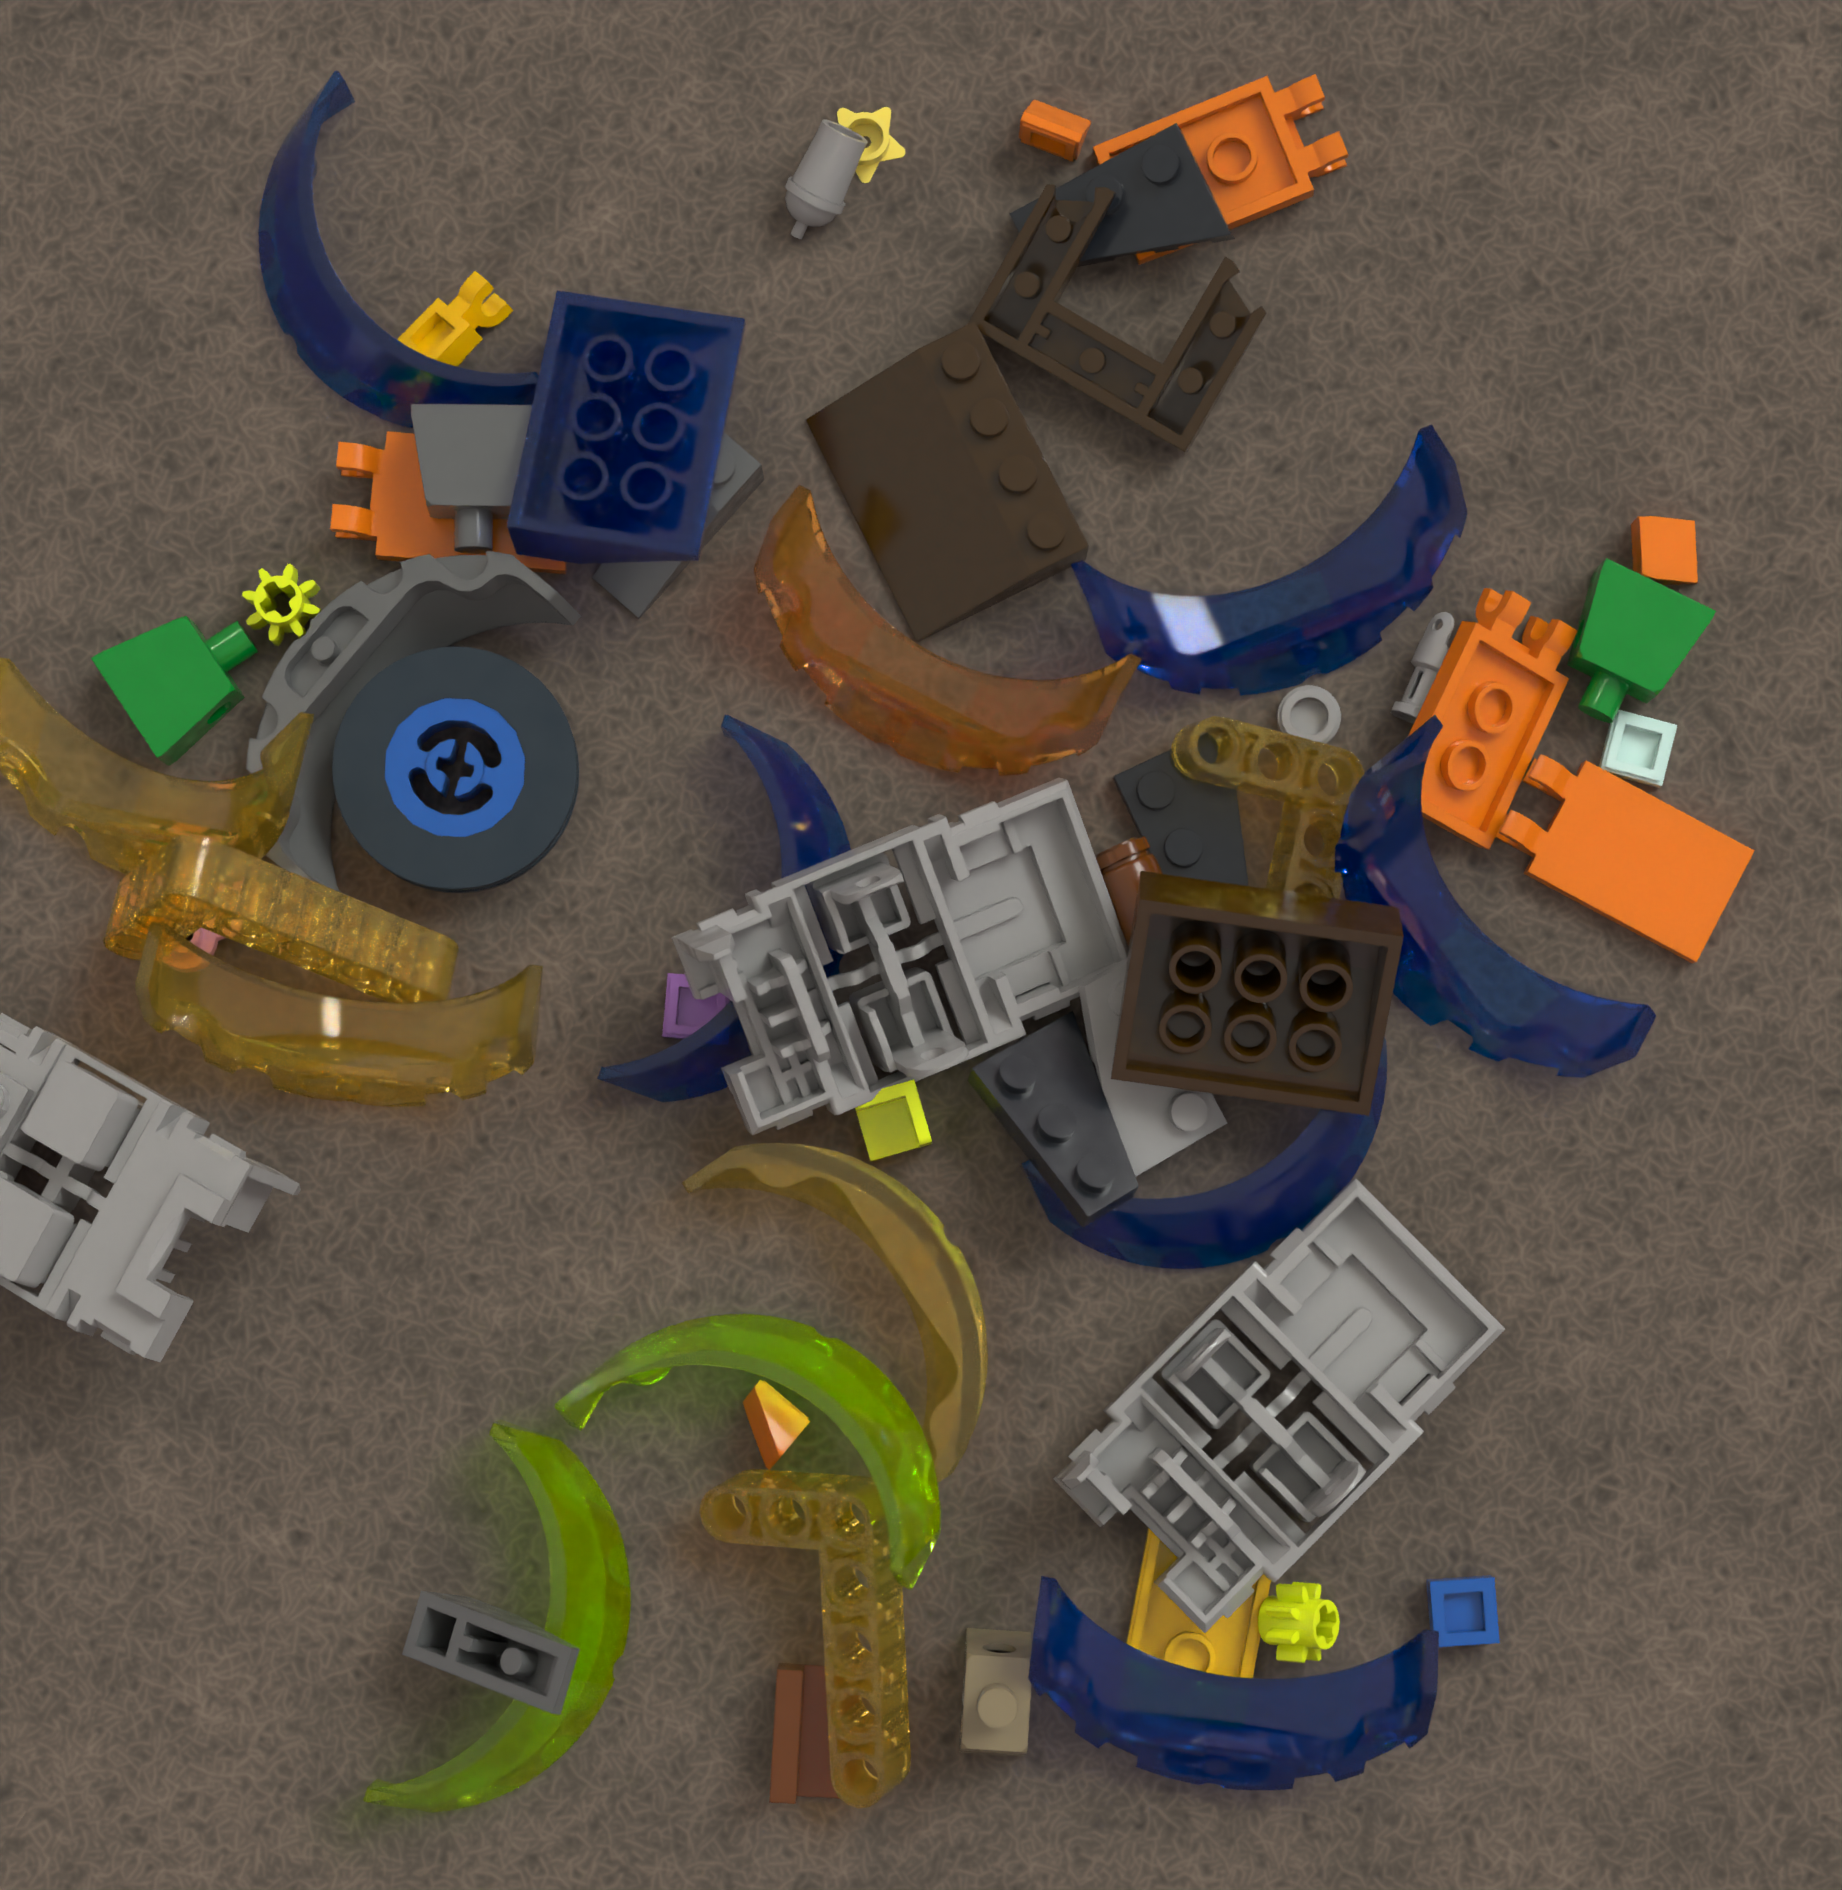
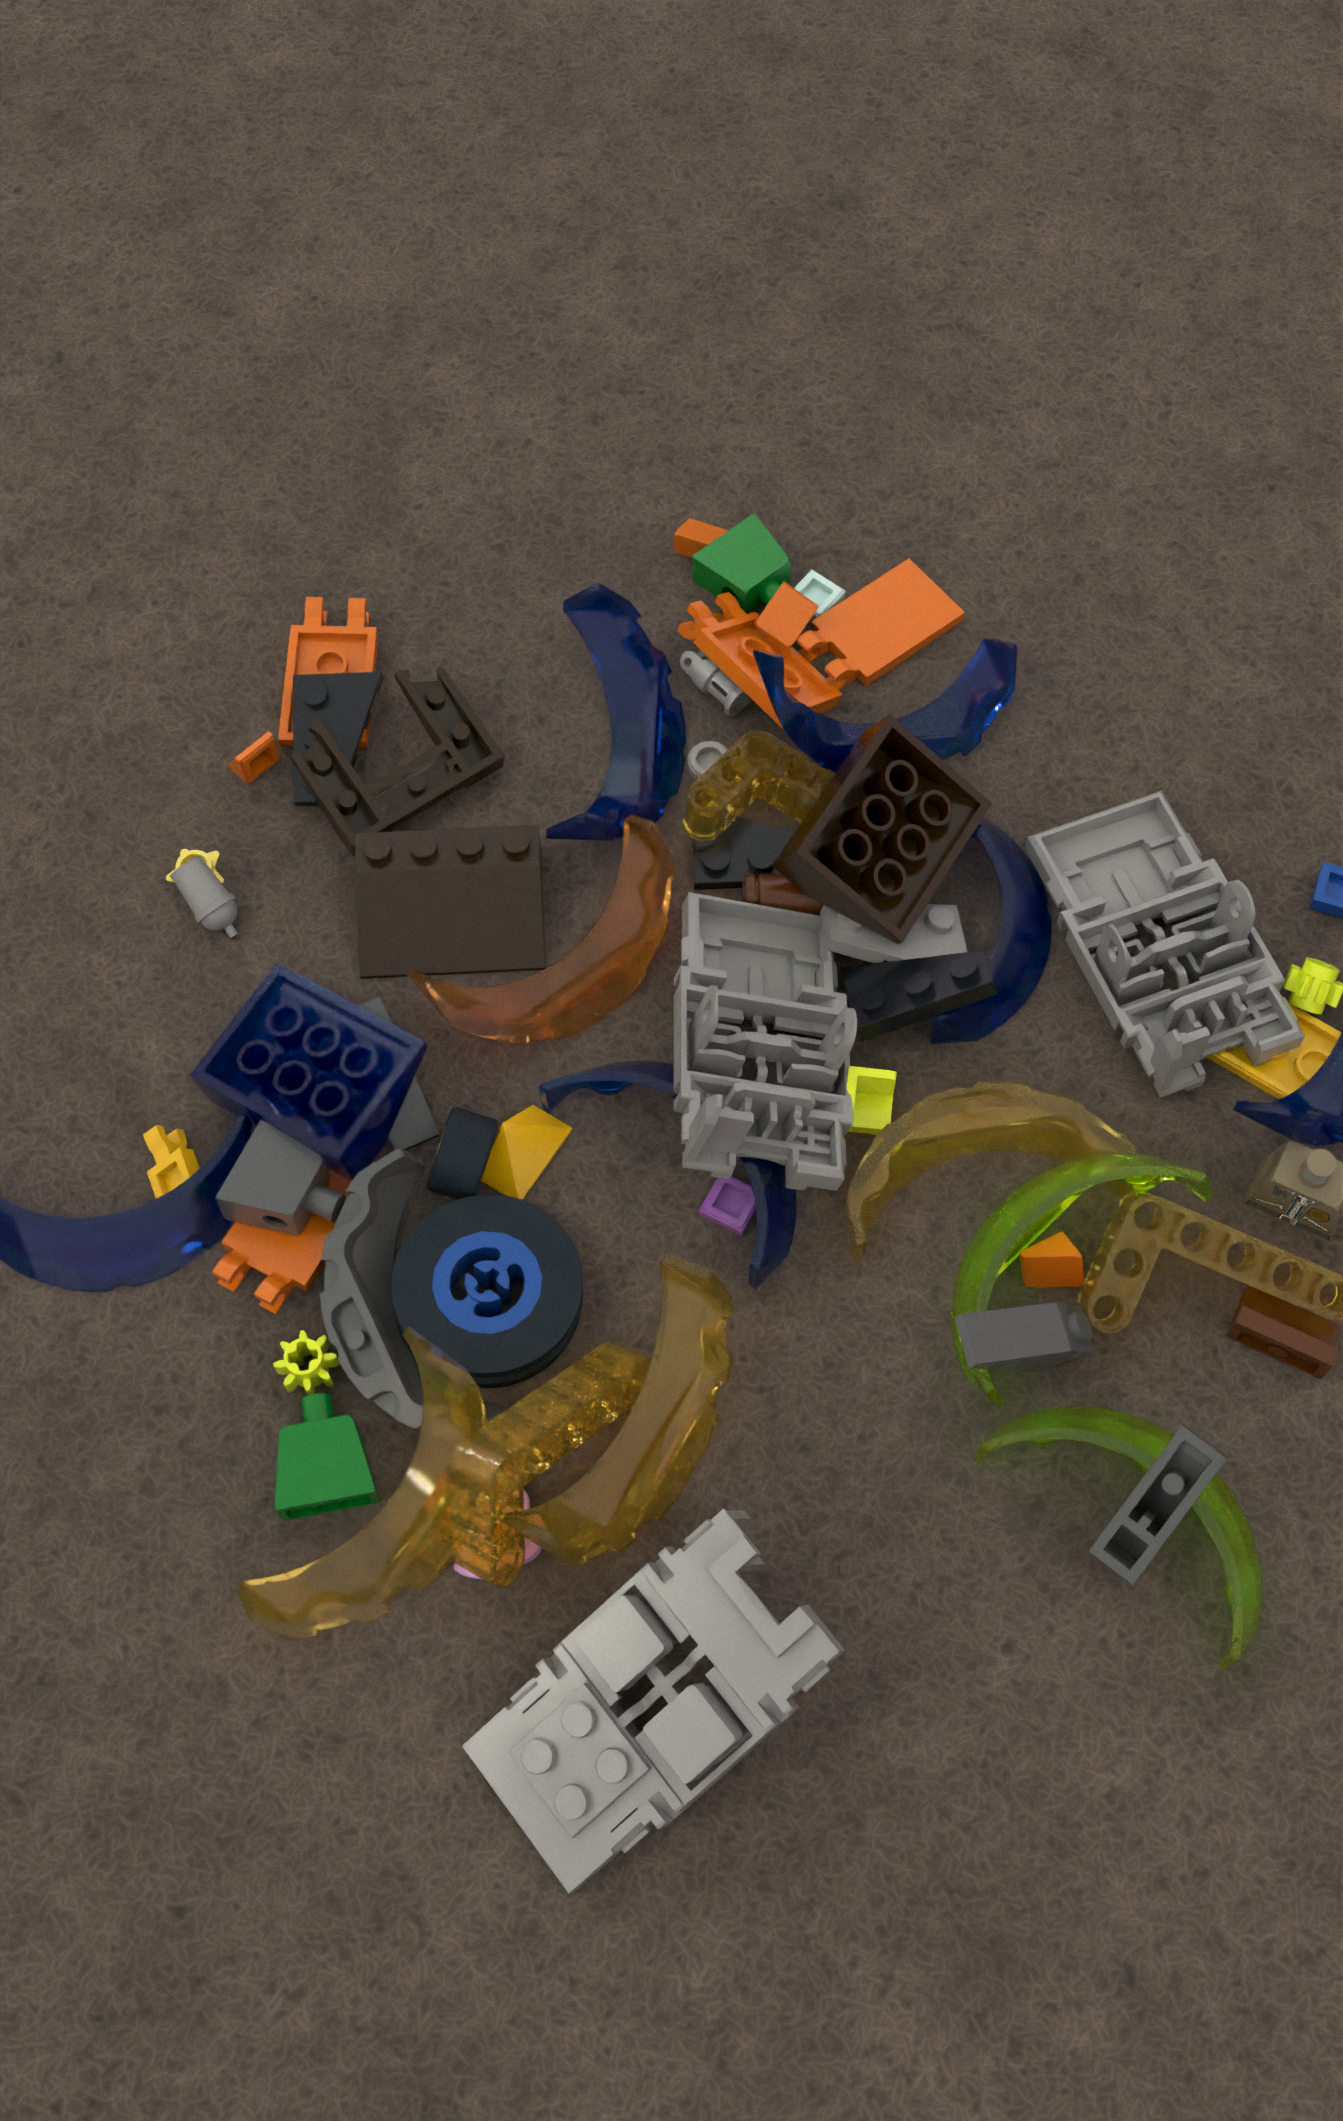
camera: 65 degrees left, 20 degrees down
(609, 661) = (462, 1154): none -> black wheel
(639, 1425) = (1025, 1337): none -> dark grey slope
(657, 731) = (523, 1151): none -> yellow slope
(1567, 724) = (786, 615): none -> orange slope

